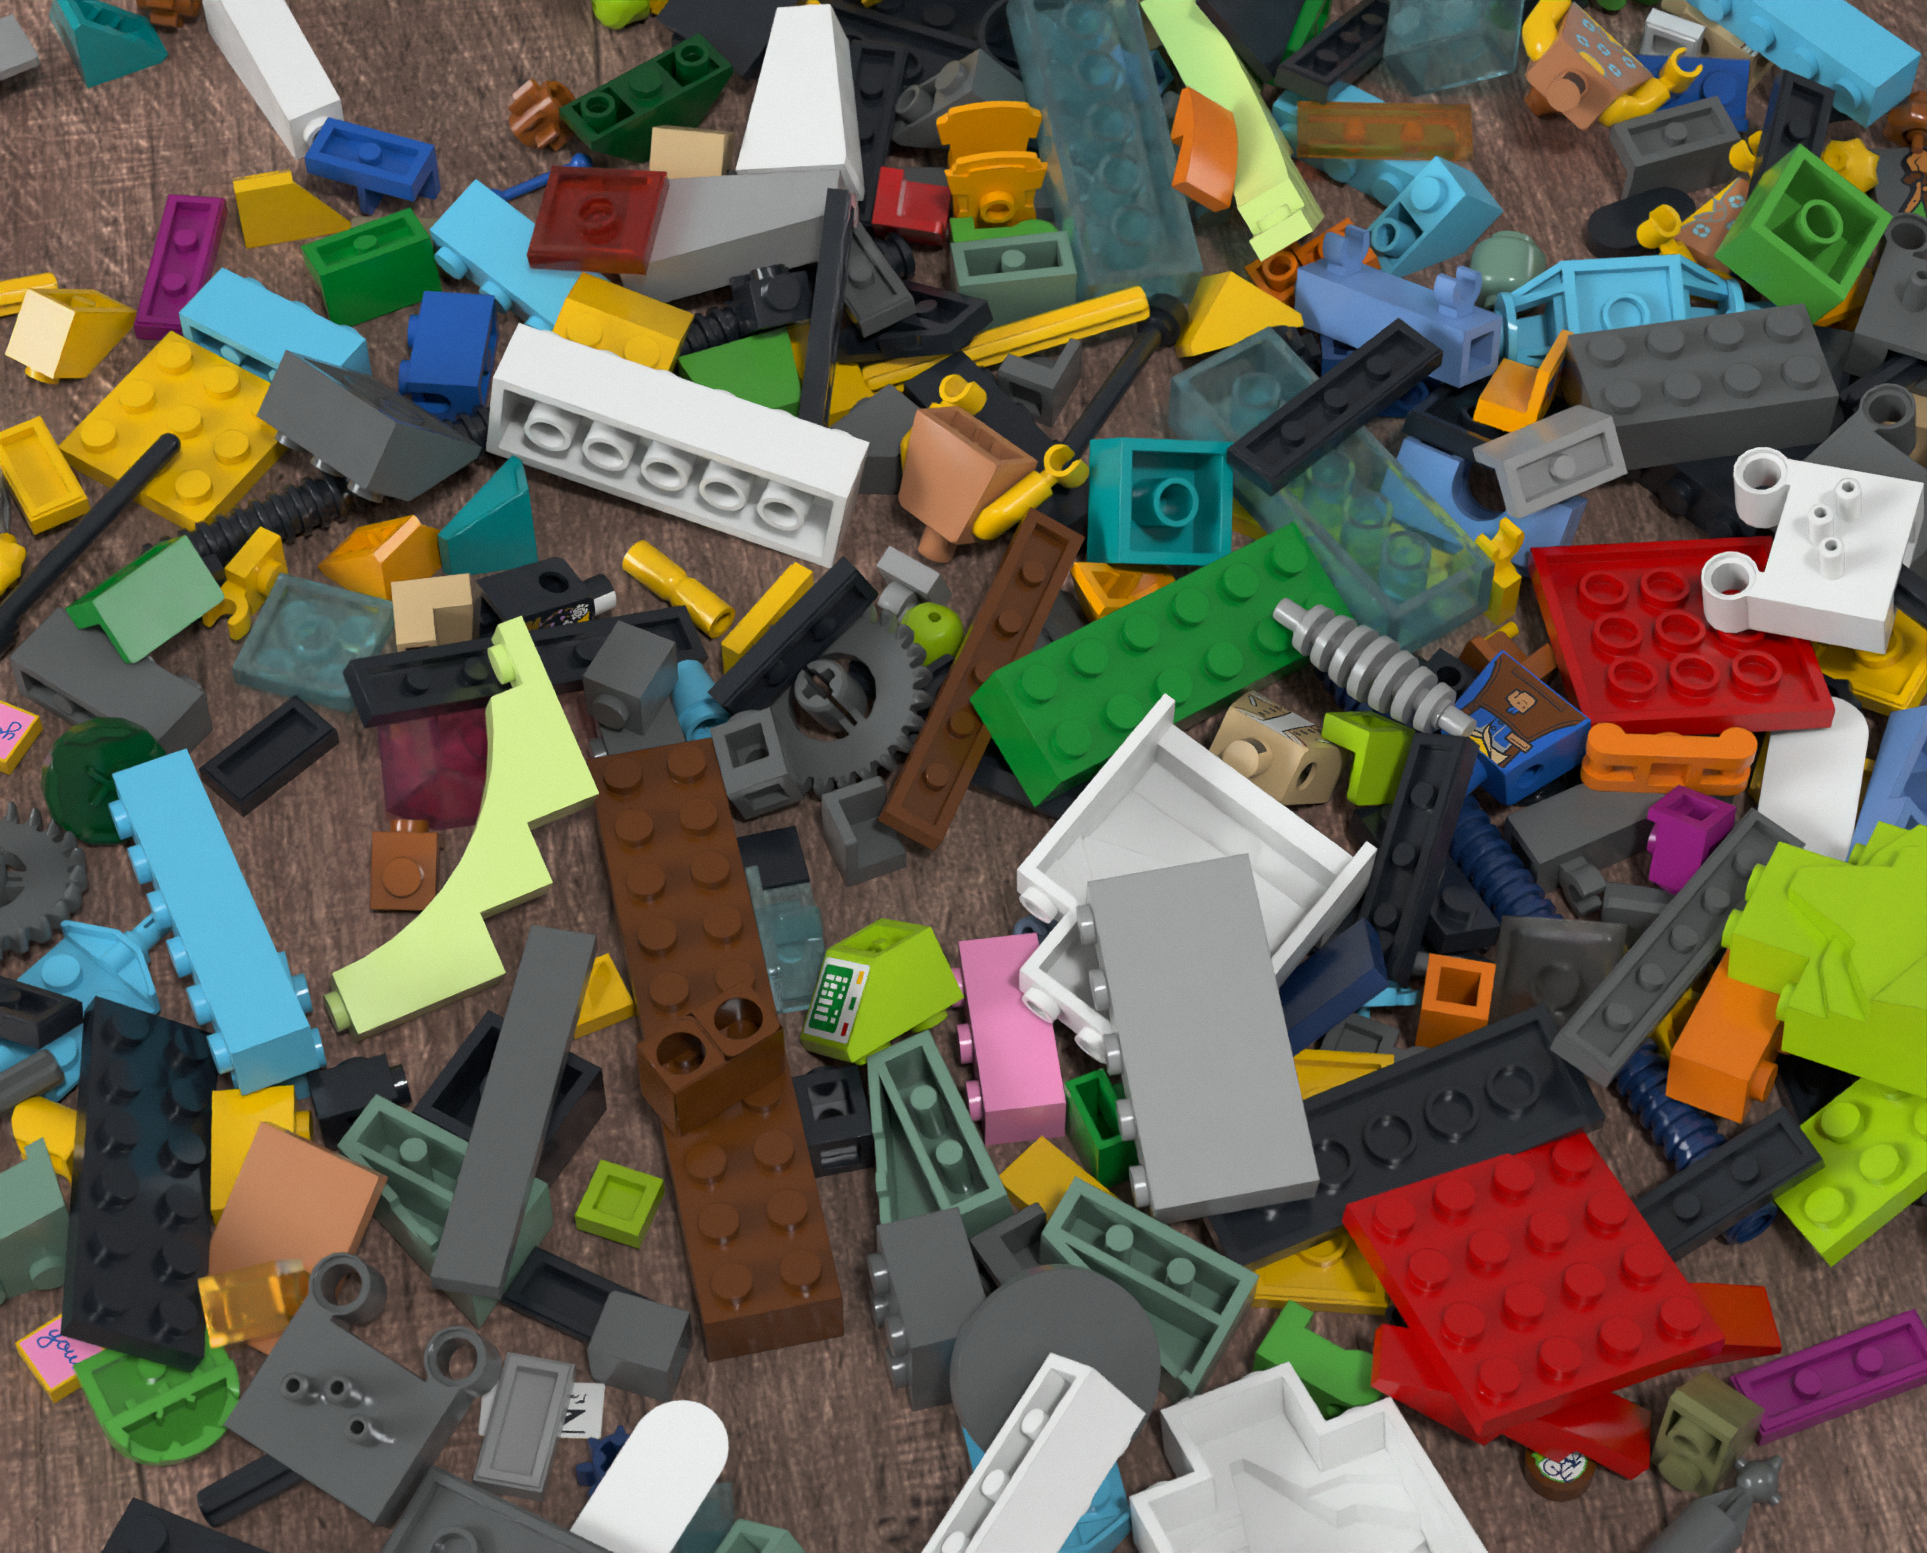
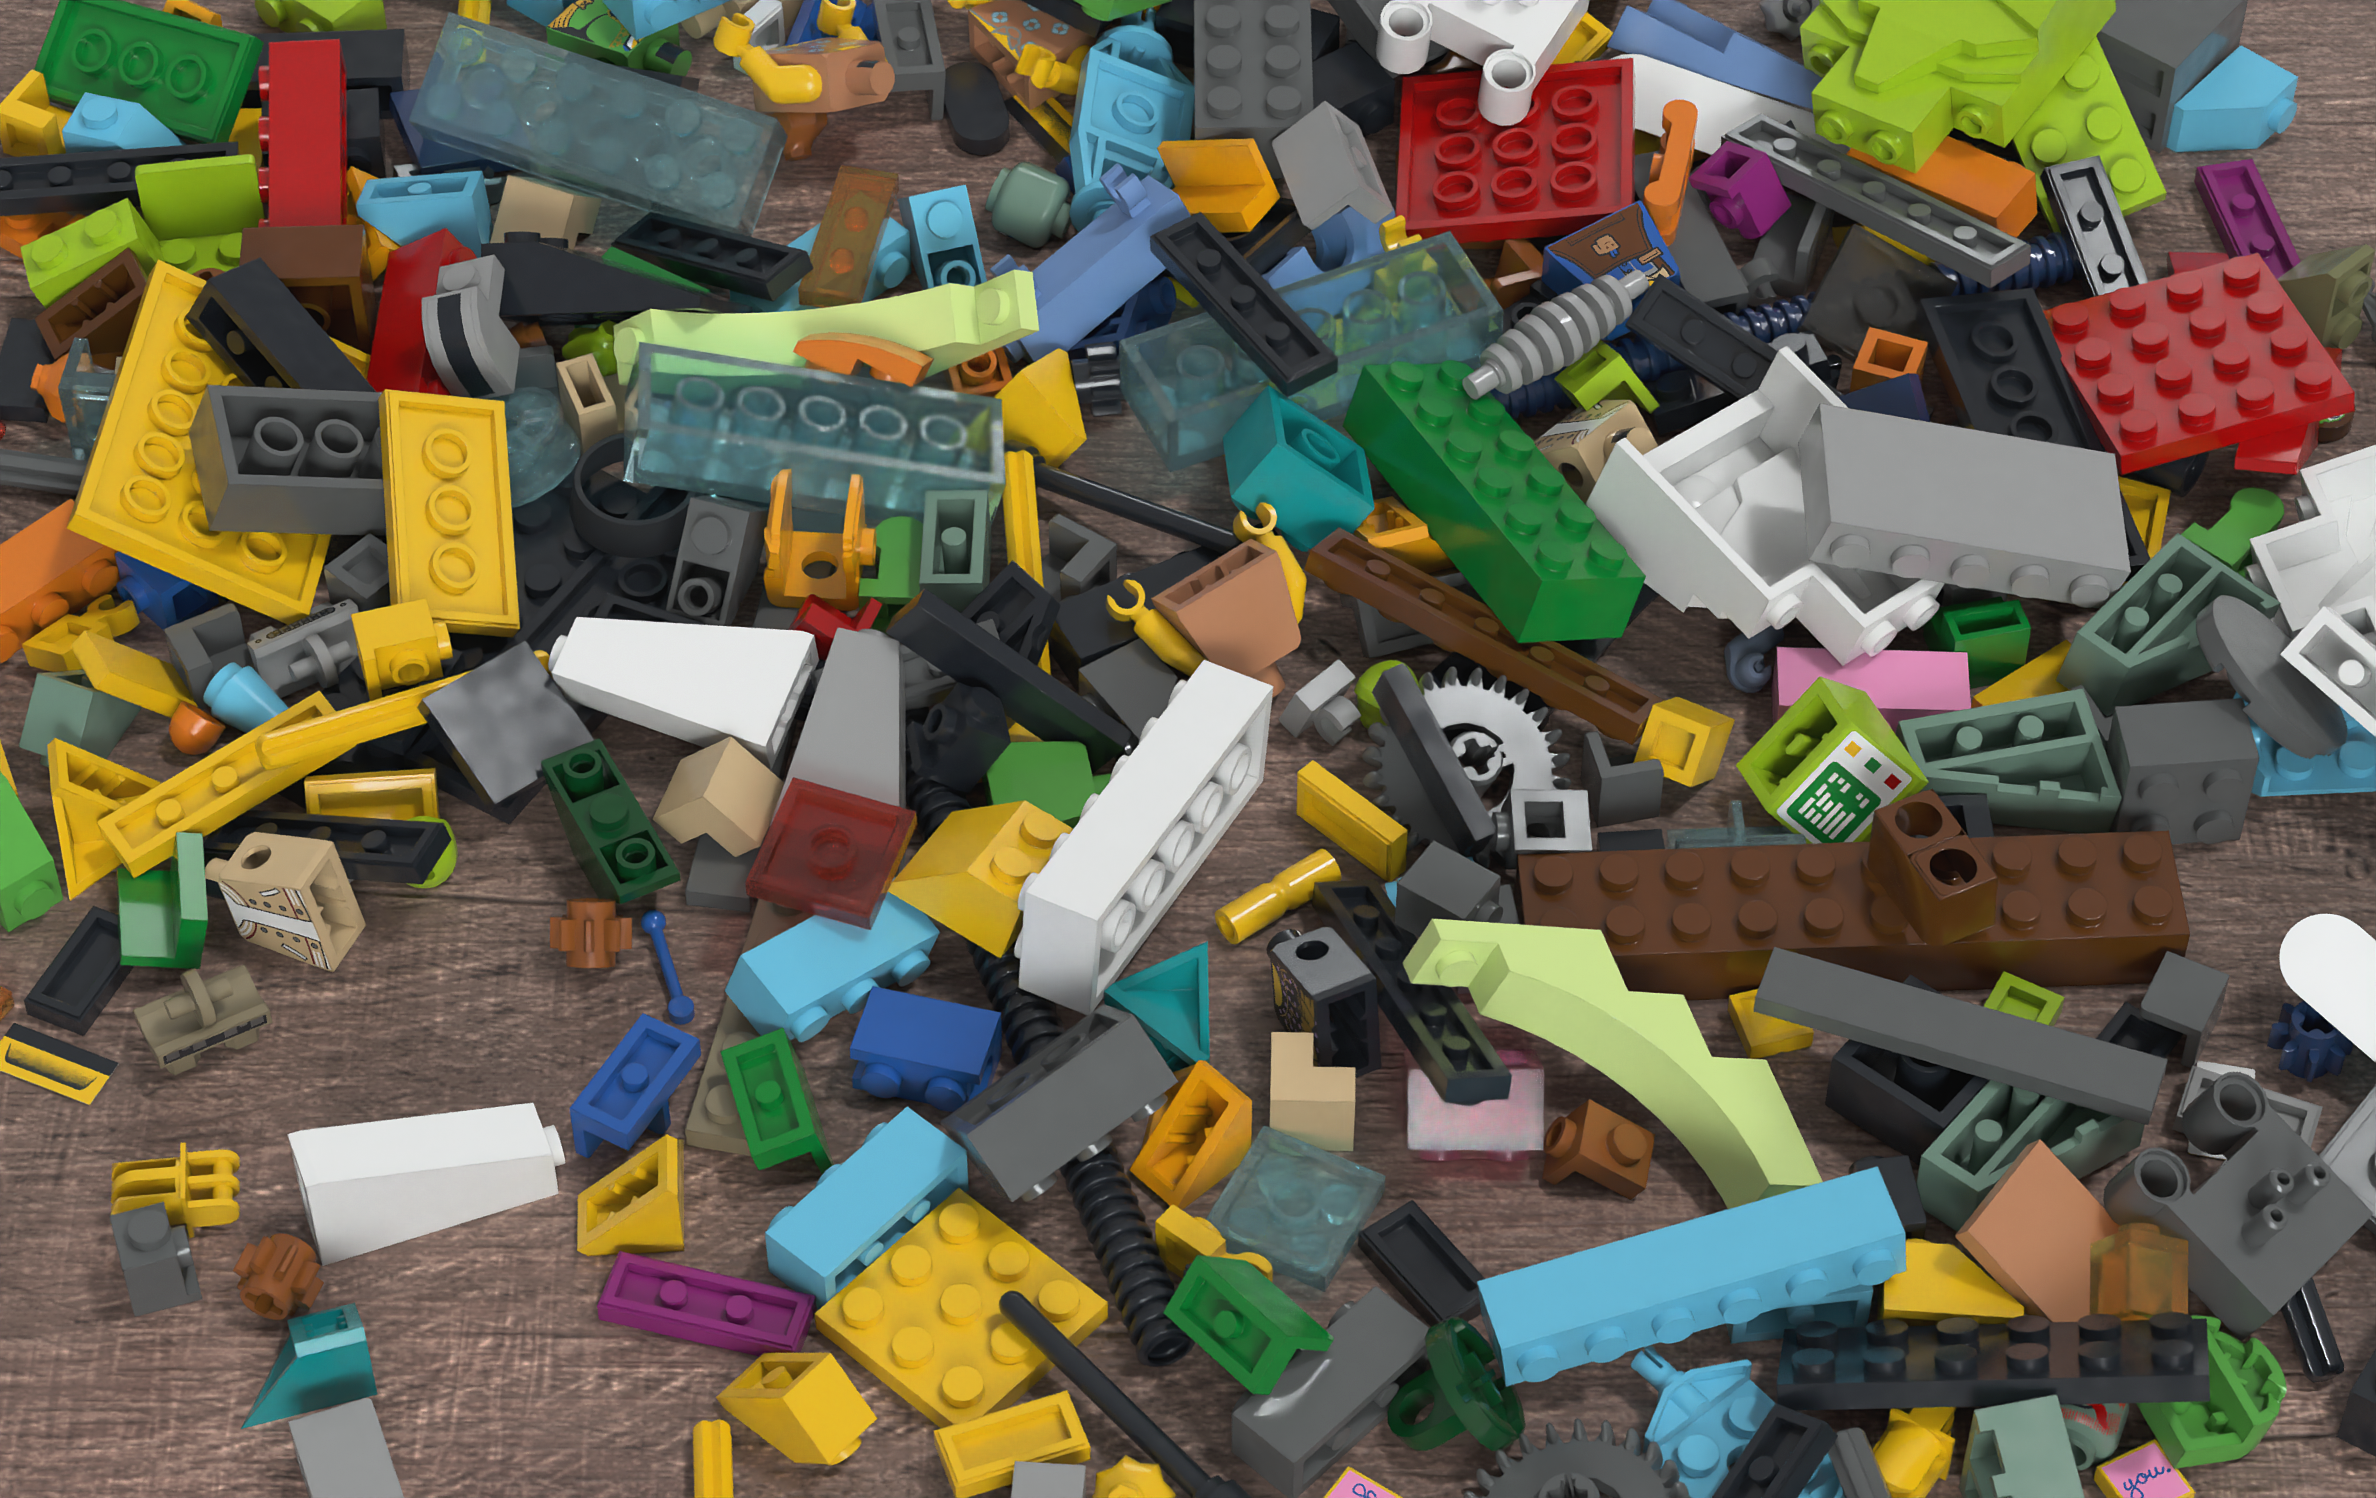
camera: 80 degrees left, 5 degrees down
(909, 874) = (1685, 740): none -> yellow panel

